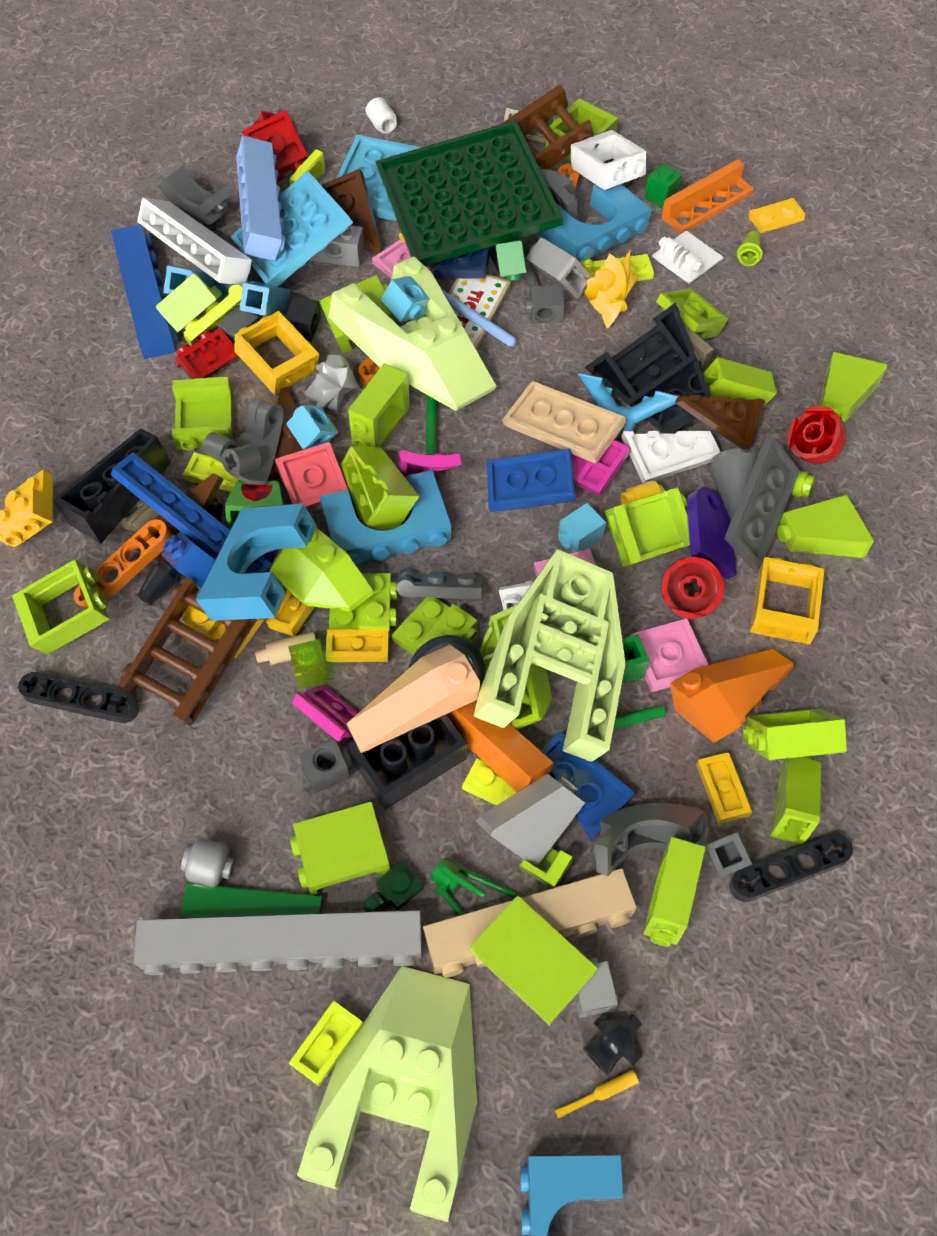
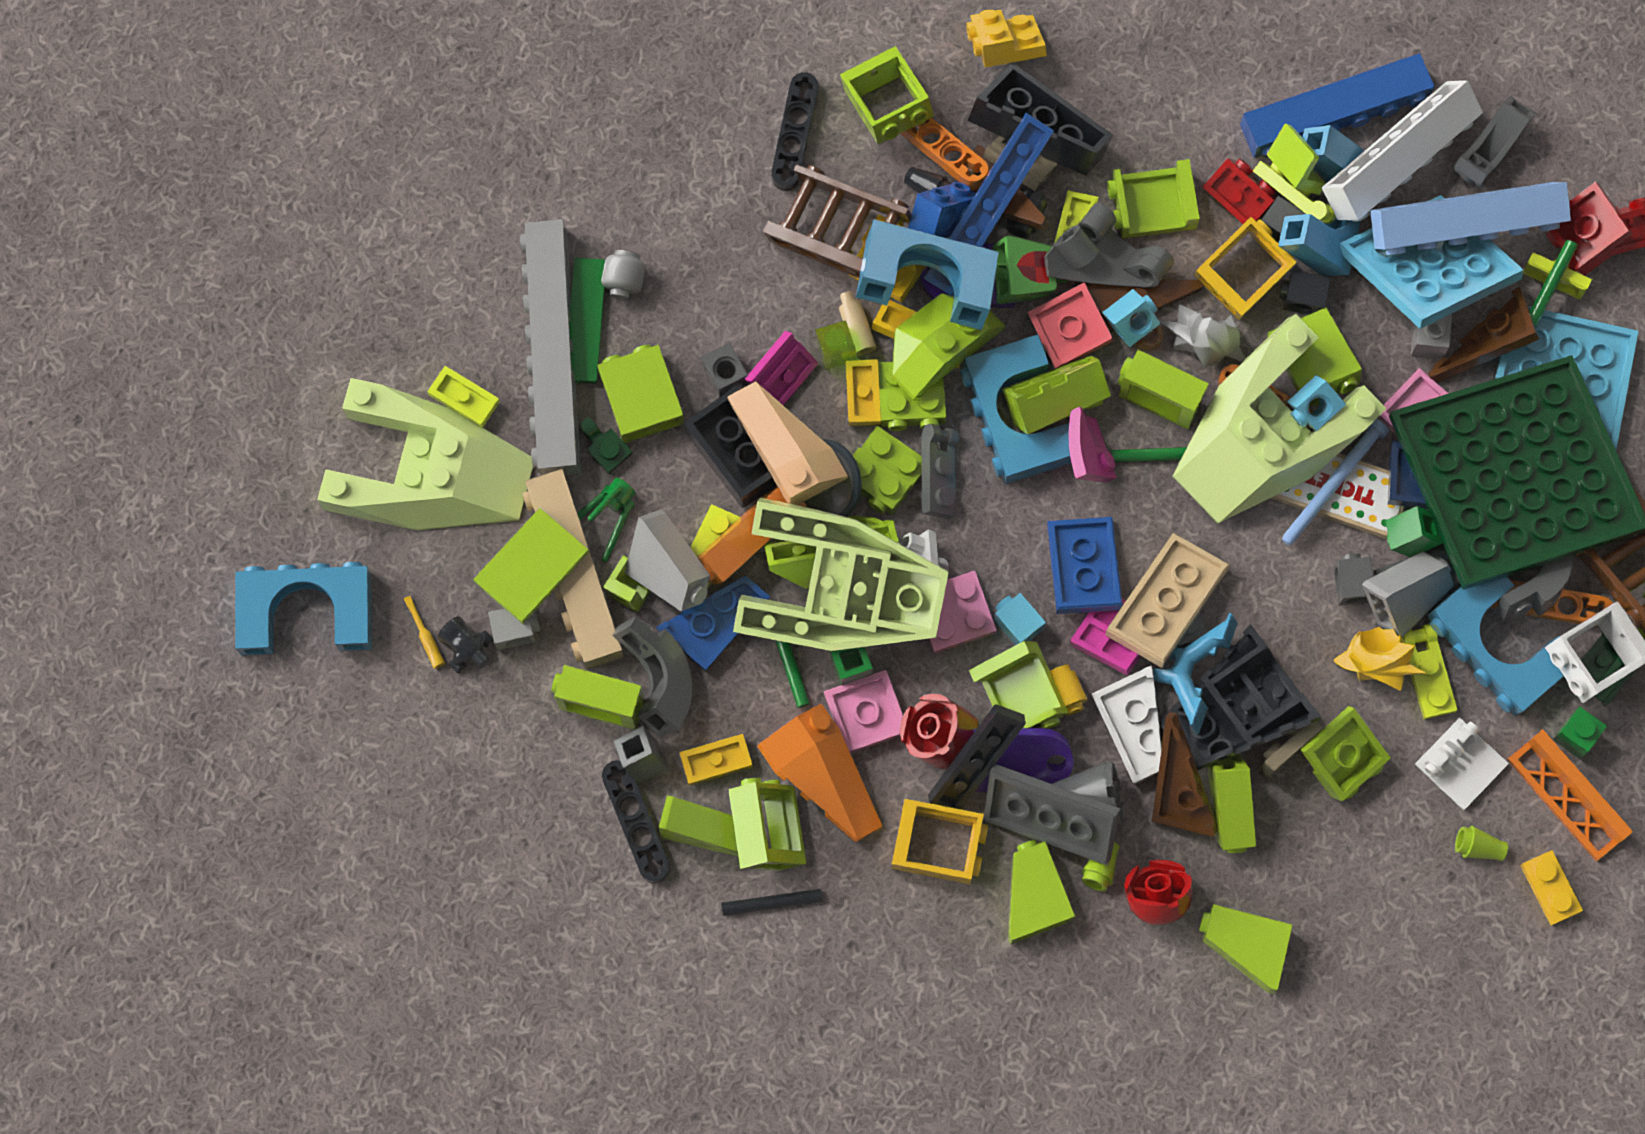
camera: 90 degrees right, 15 degrees up
(310, 164) = (1553, 280): none -> green bar
(725, 557) = (977, 757): none -> black plate
(855, 745) = (771, 902): none -> black bar

